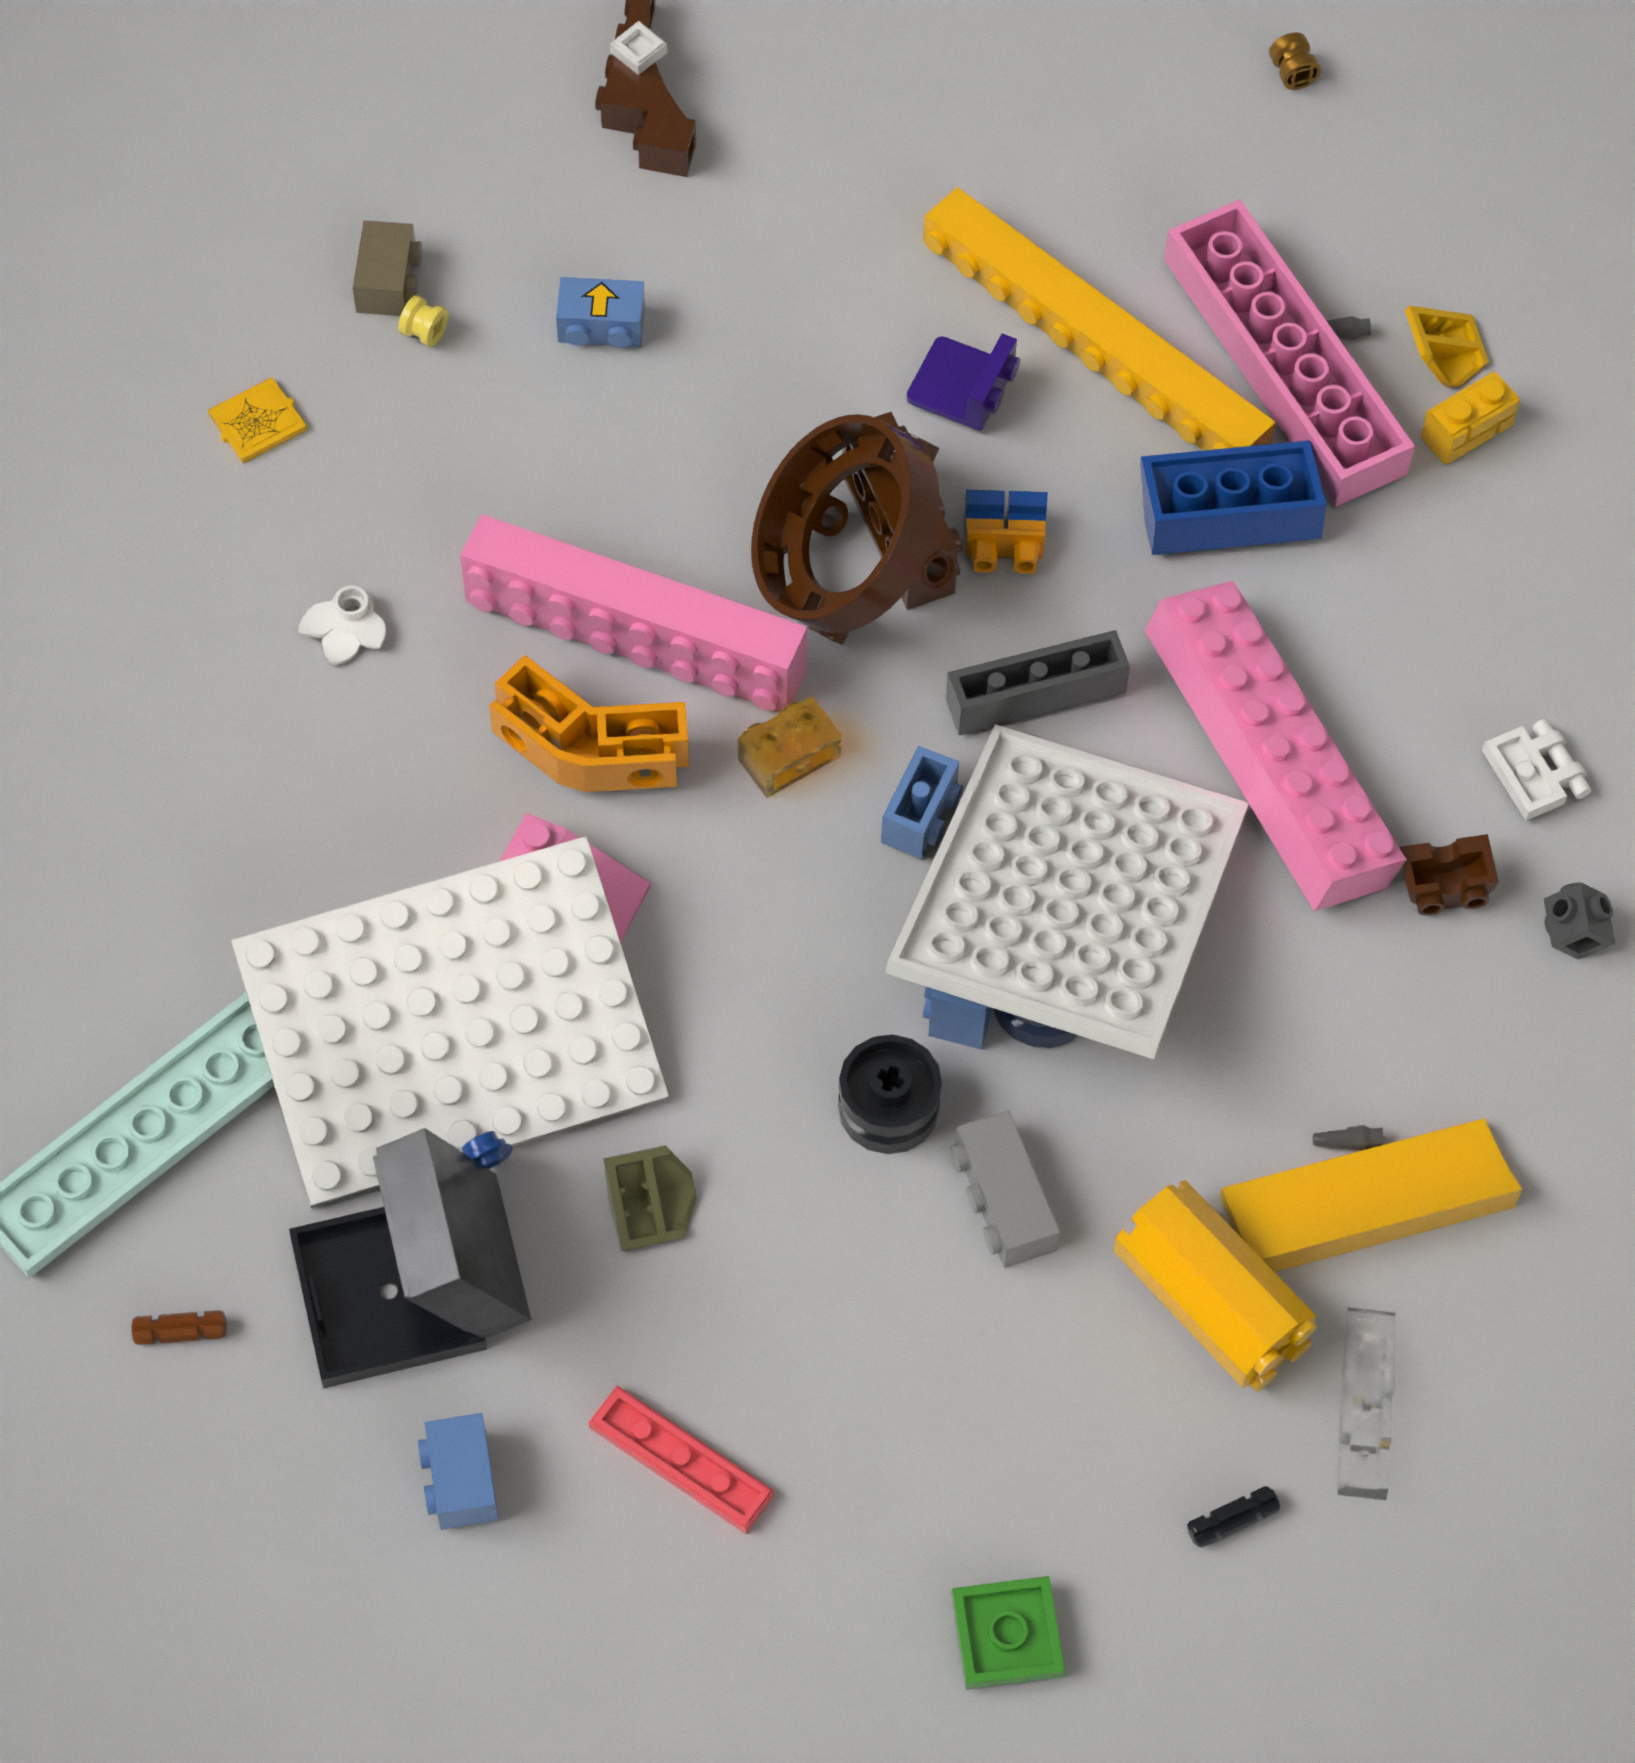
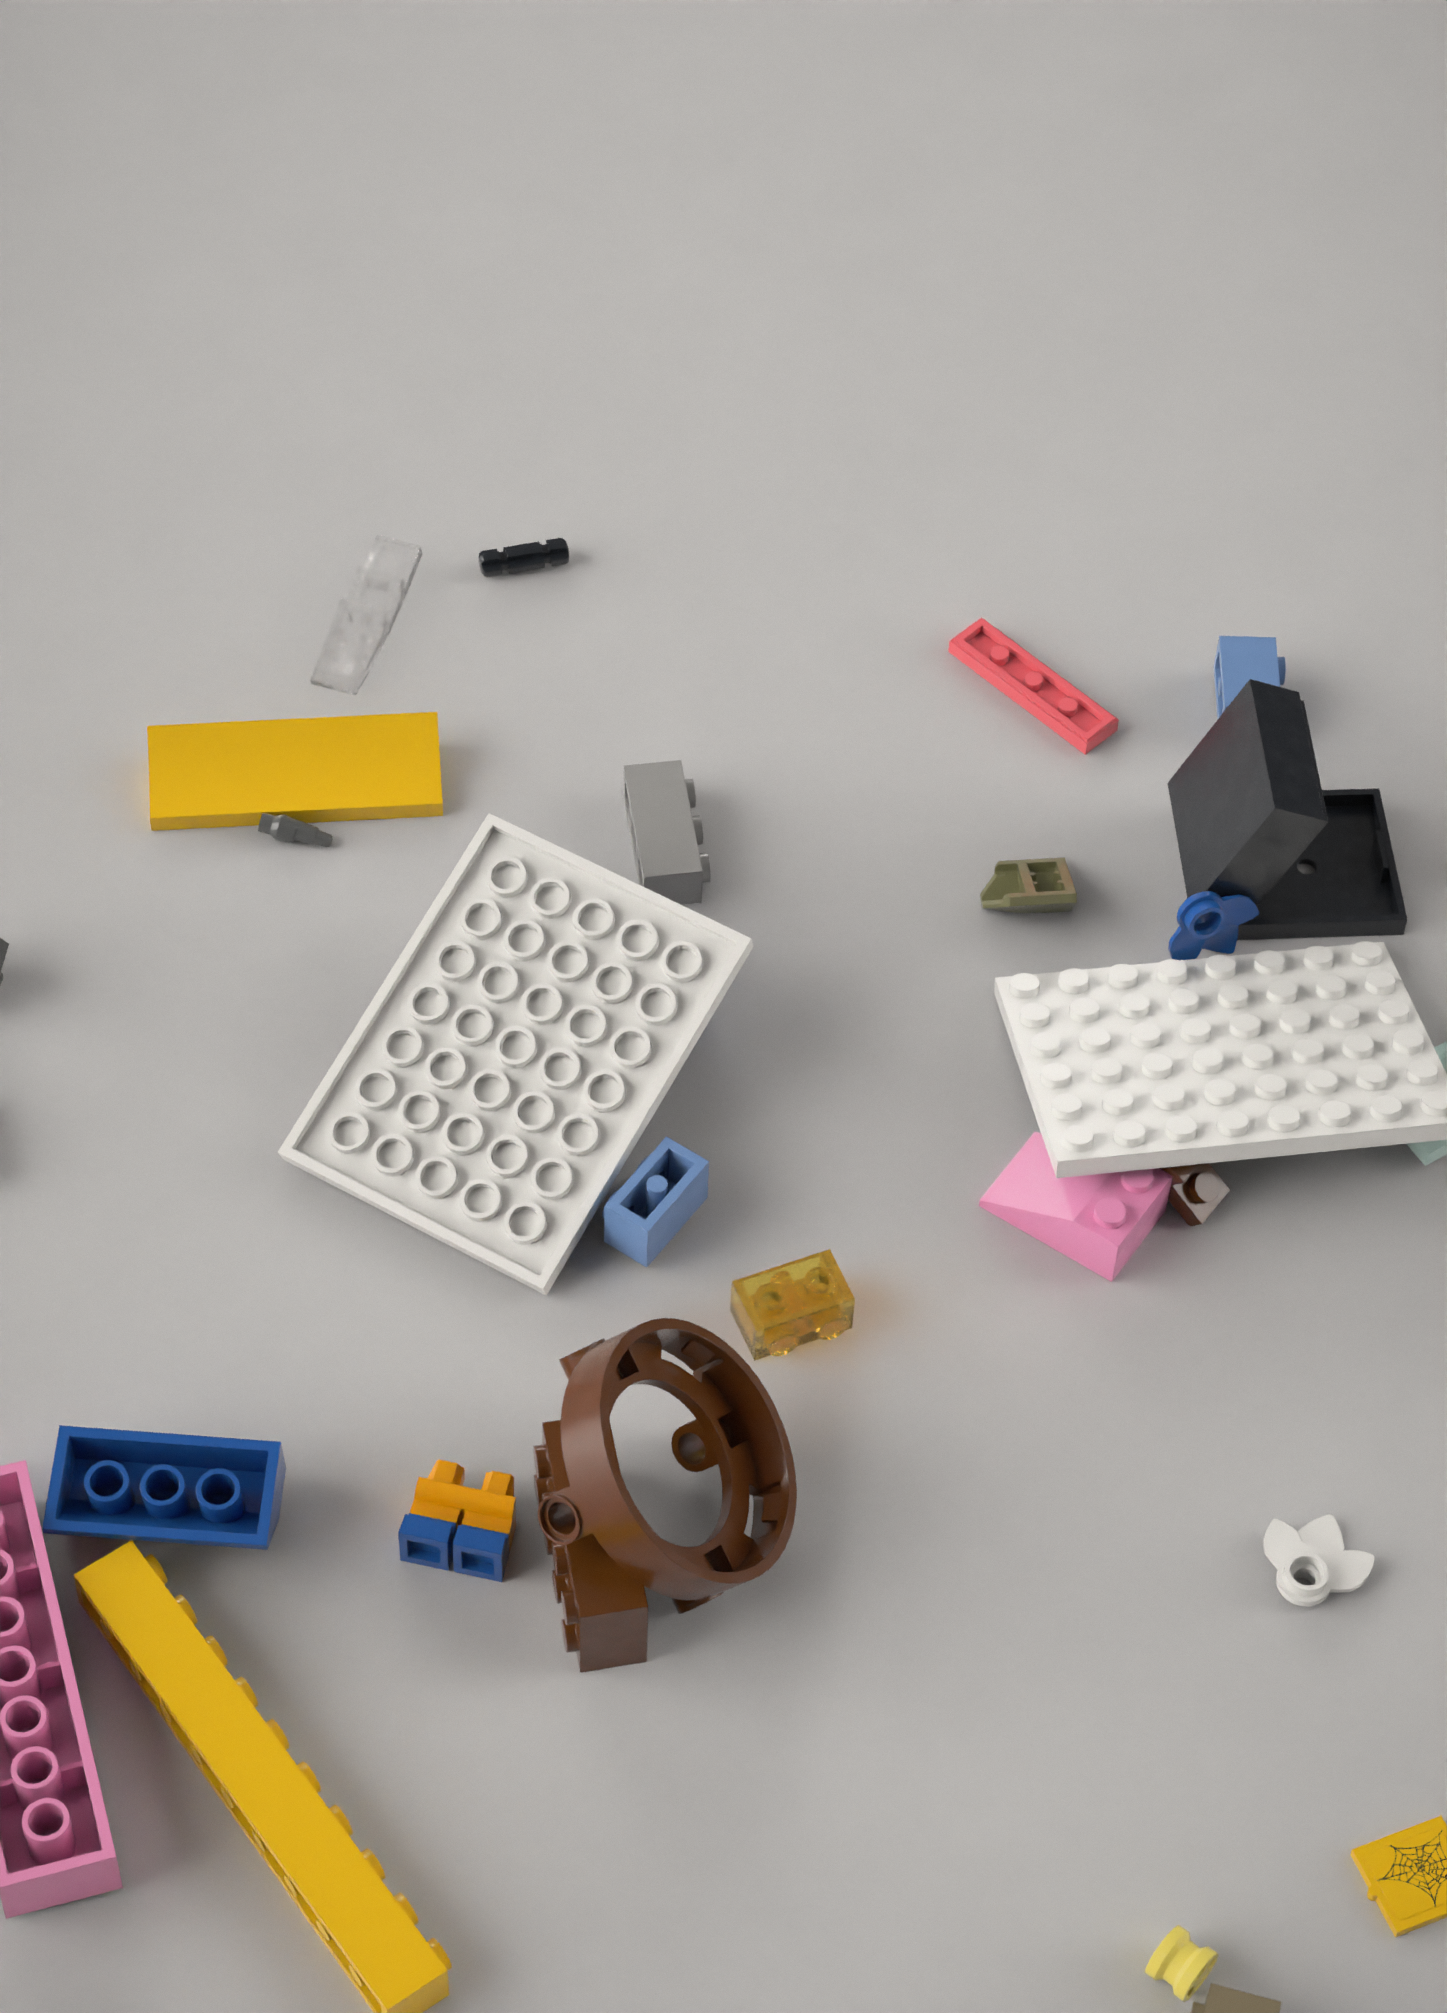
camera: 170 degrees left, 10 degrees down
(588, 744) = (1075, 1357): light orange brick -> none
(600, 312) = (931, 1930): medium blue brick -> none
(634, 614) = (962, 1469): bright pink brick -> none
(889, 1094) = (778, 914): black wheel -> none
(963, 380) = (453, 1737): dark purple bracket -> none
(1007, 1632) = (757, 507): bright green plate -> none
(1037, 682) = (481, 1311): dark grey brick -> none
(1216, 1285) = (484, 699): yellow brick -> none
(1274, 745) = (230, 1200): bright pink brick -> none
(1450, 874) = (83, 1041): reddish brown cylinder -> none

